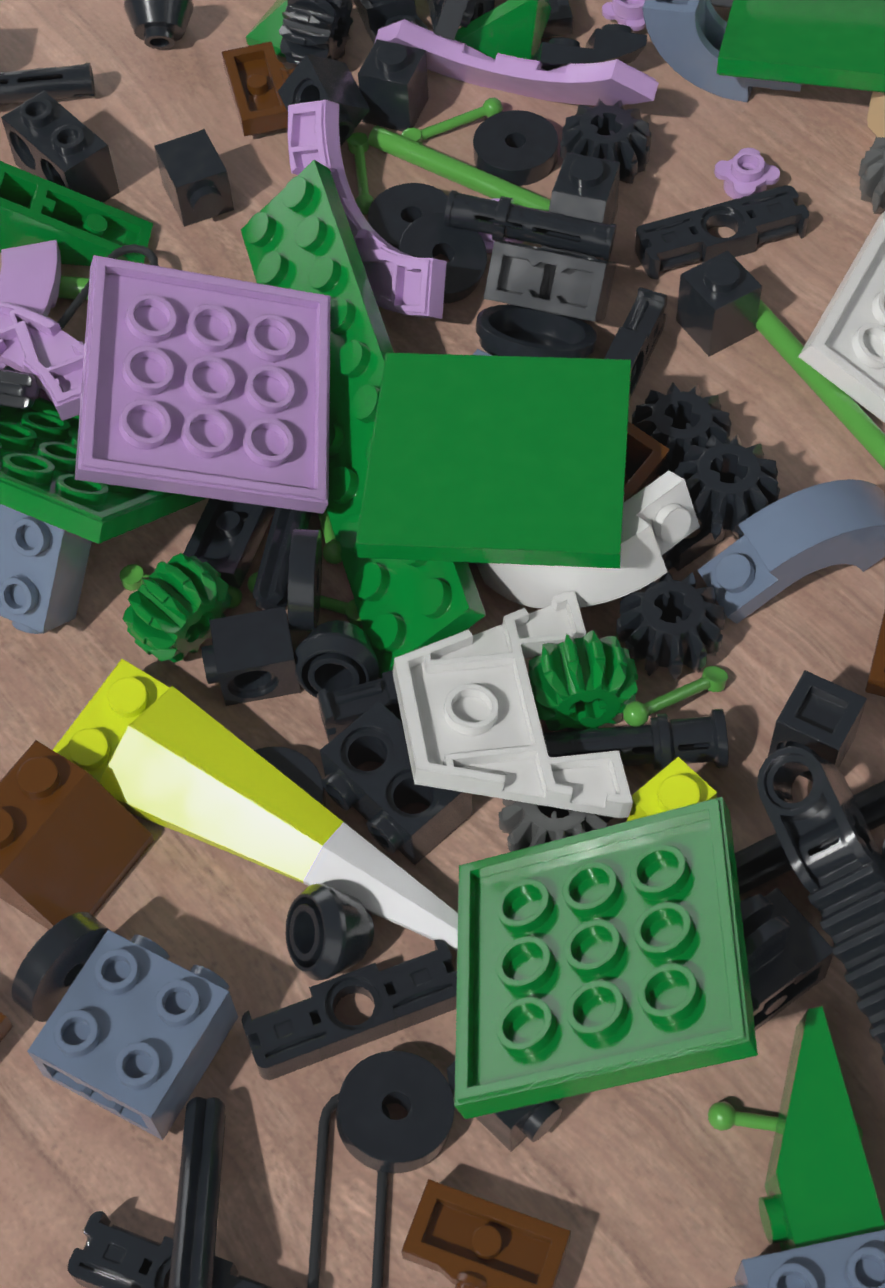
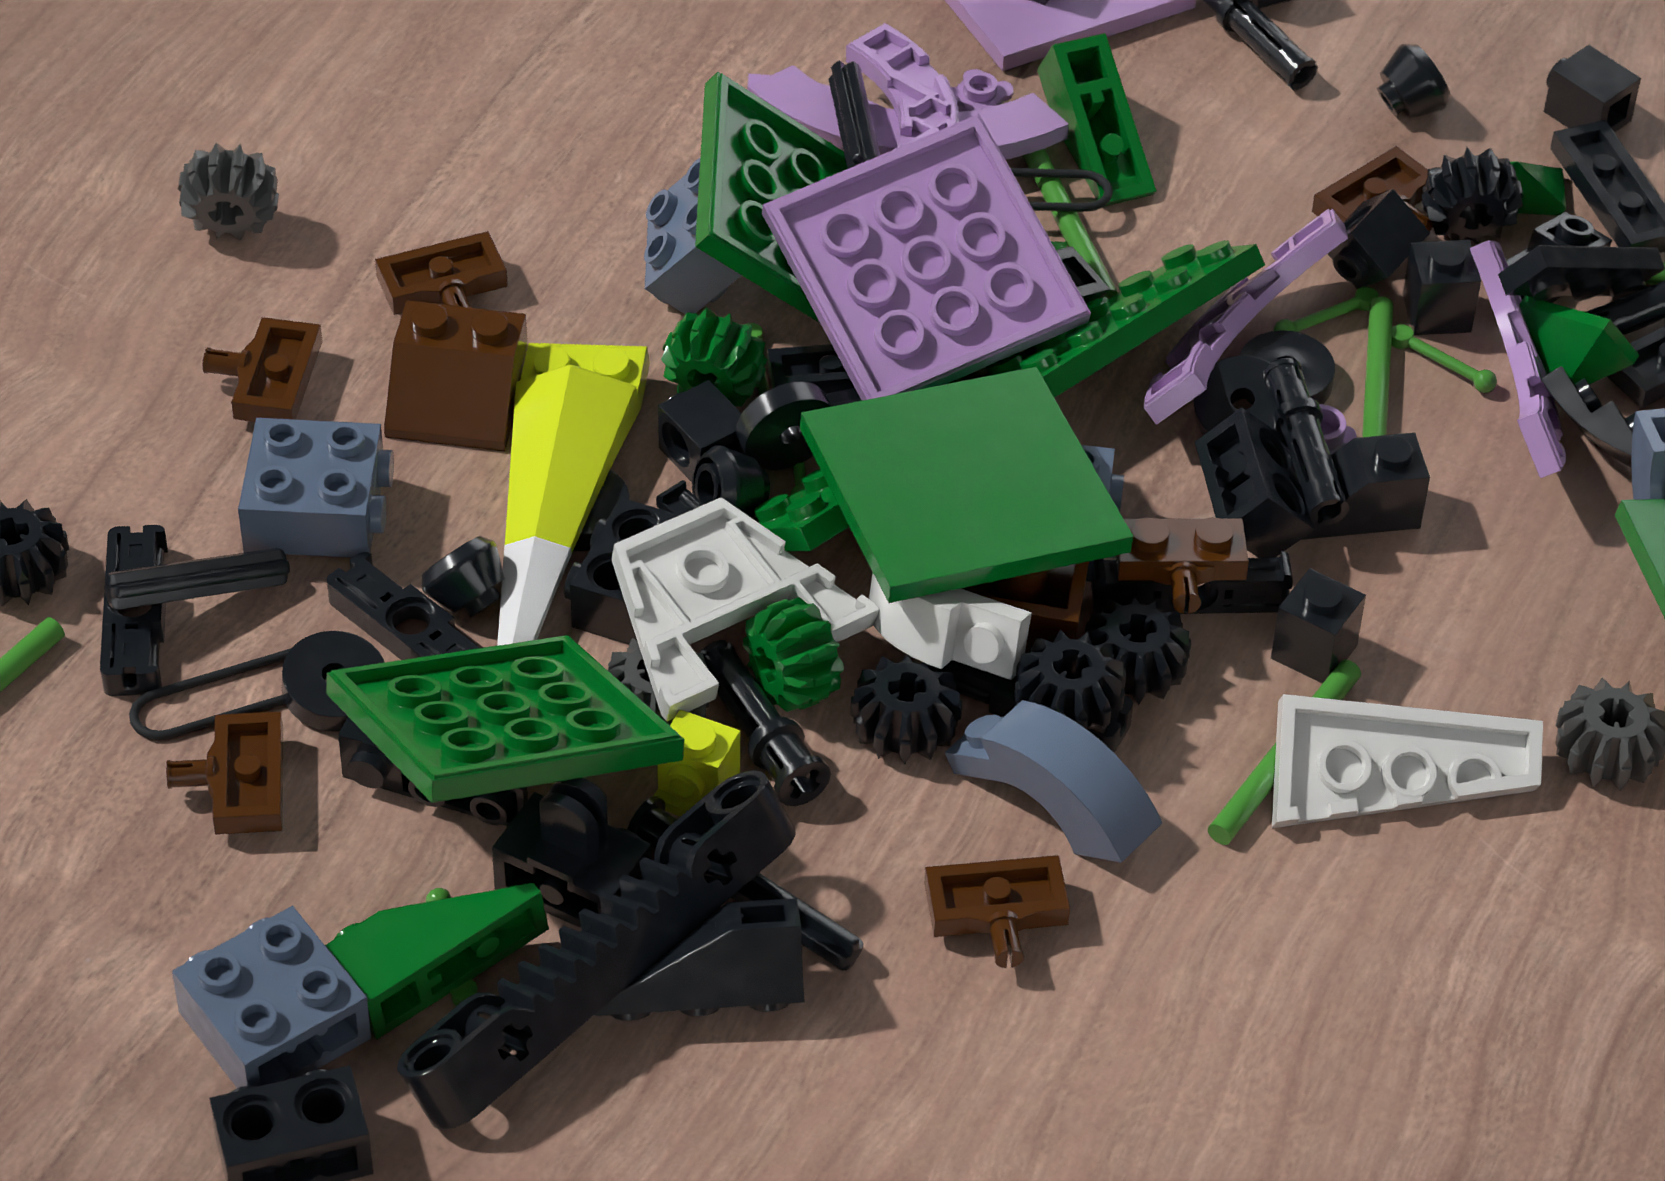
camera: 60 degrees right, 10 degrees down
(55, 964) = (347, 401): black piece -> none
(60, 148) = (1180, 87): black brick -> none
(194, 177) = (1220, 191): black brick -> none
(516, 147) = (1445, 414): black piece -> none
(533, 333) = (1166, 483): black piece -> none
(610, 135) = (1482, 477): black gear -> none
(628, 332) = (1185, 555): none -> reddish brown plate
(712, 679) = (874, 767): bright green hinge -> none
(746, 173) = (1529, 608): lavender plate -> none
(753, 218) = (1469, 635): black piece -> none
(819, 719) = (838, 834): black brick -> none

